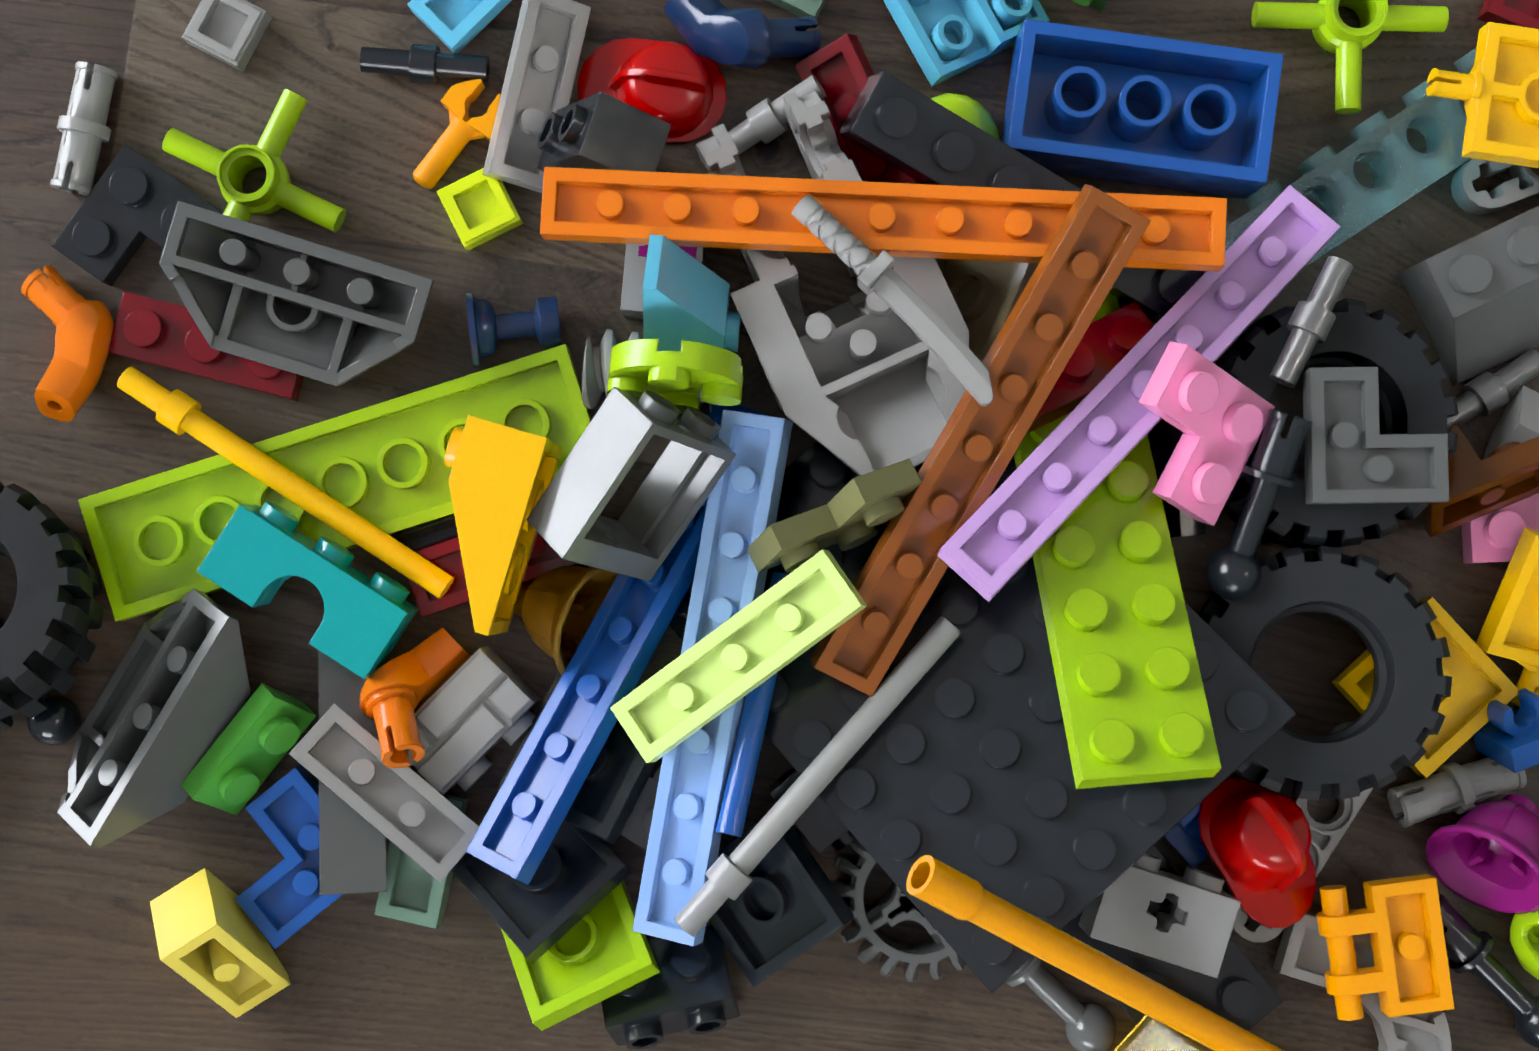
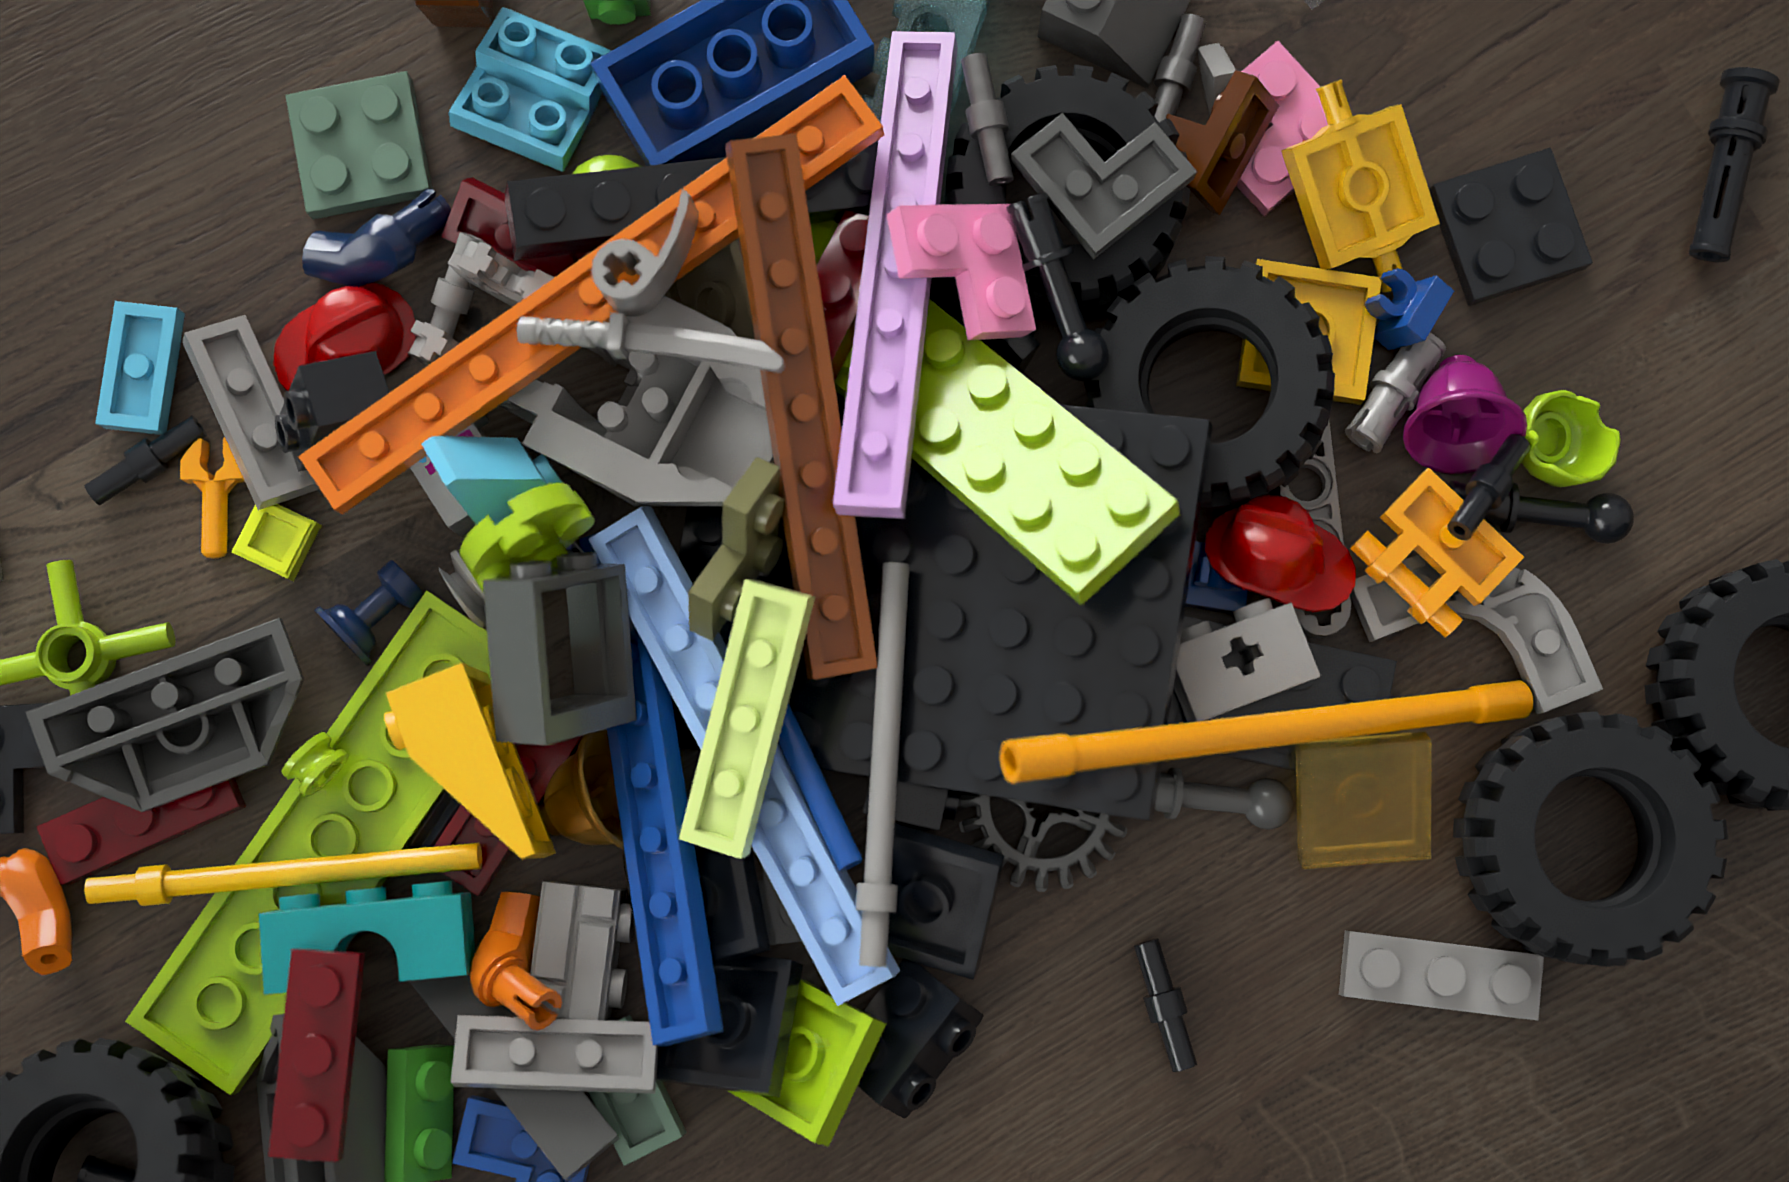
camera: 35 degrees left, 5 degrees down
(201, 652) = (316, 1055): none -> dark red plate
(373, 416) = (314, 764): none -> lime bush
(944, 244) = (655, 272): none -> light grey panel
(1472, 932) = (1488, 487): none -> black bar

